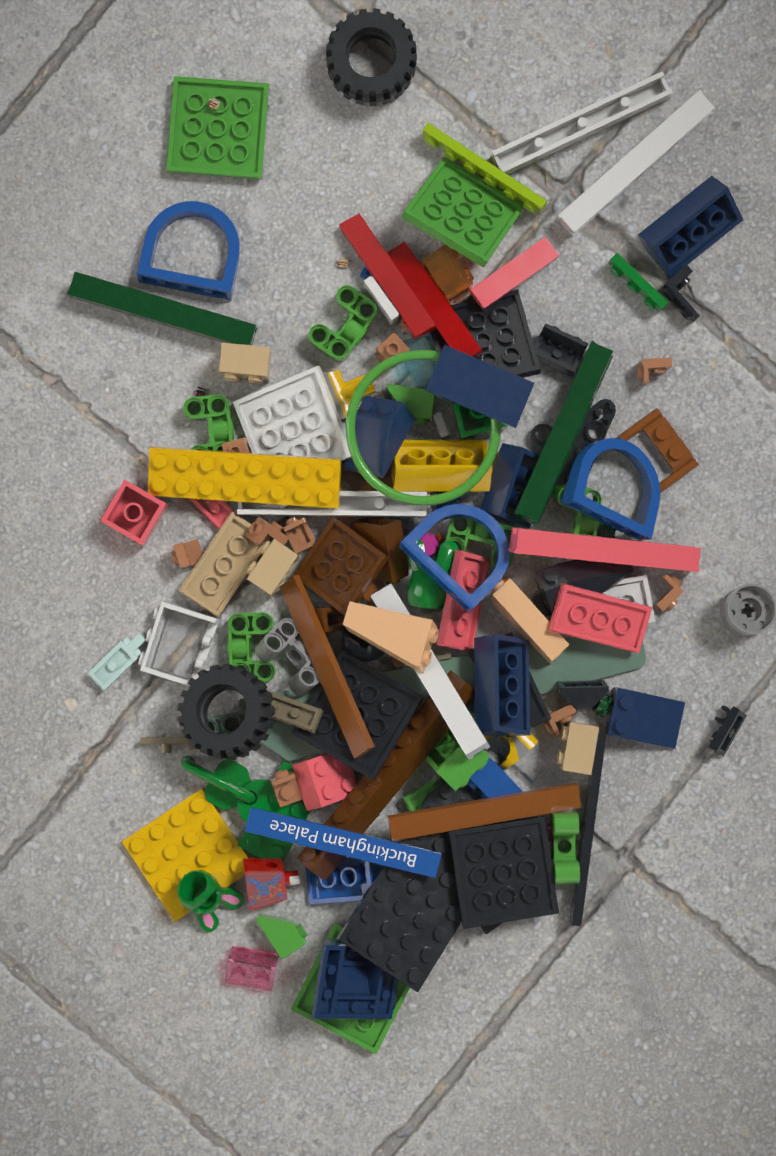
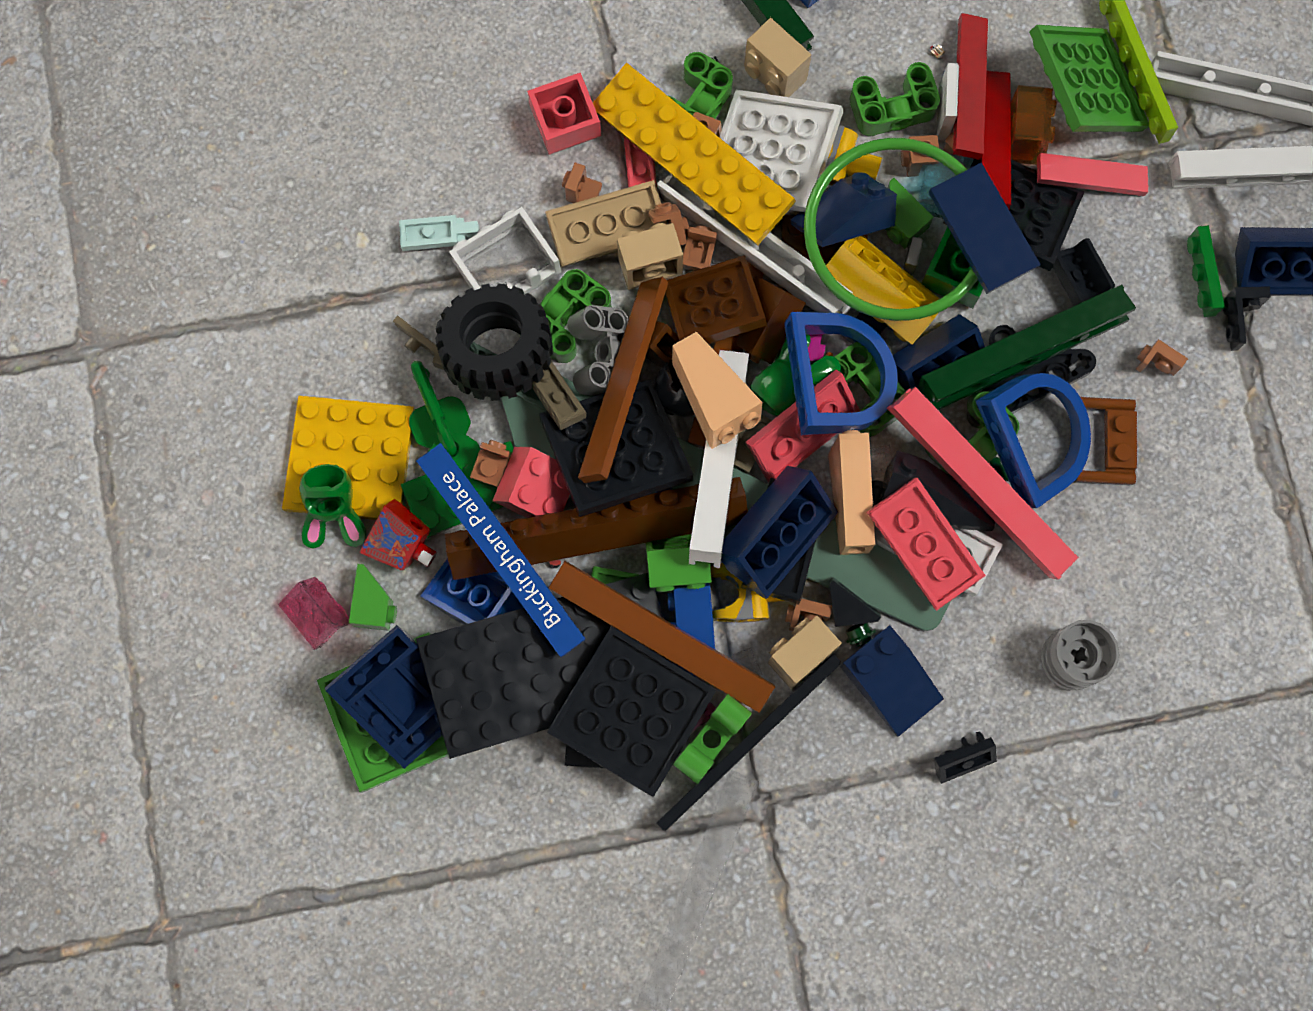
camera: 45 degrees right, 10 degrees down
(669, 600) = (1006, 585): nougat bracket -> none

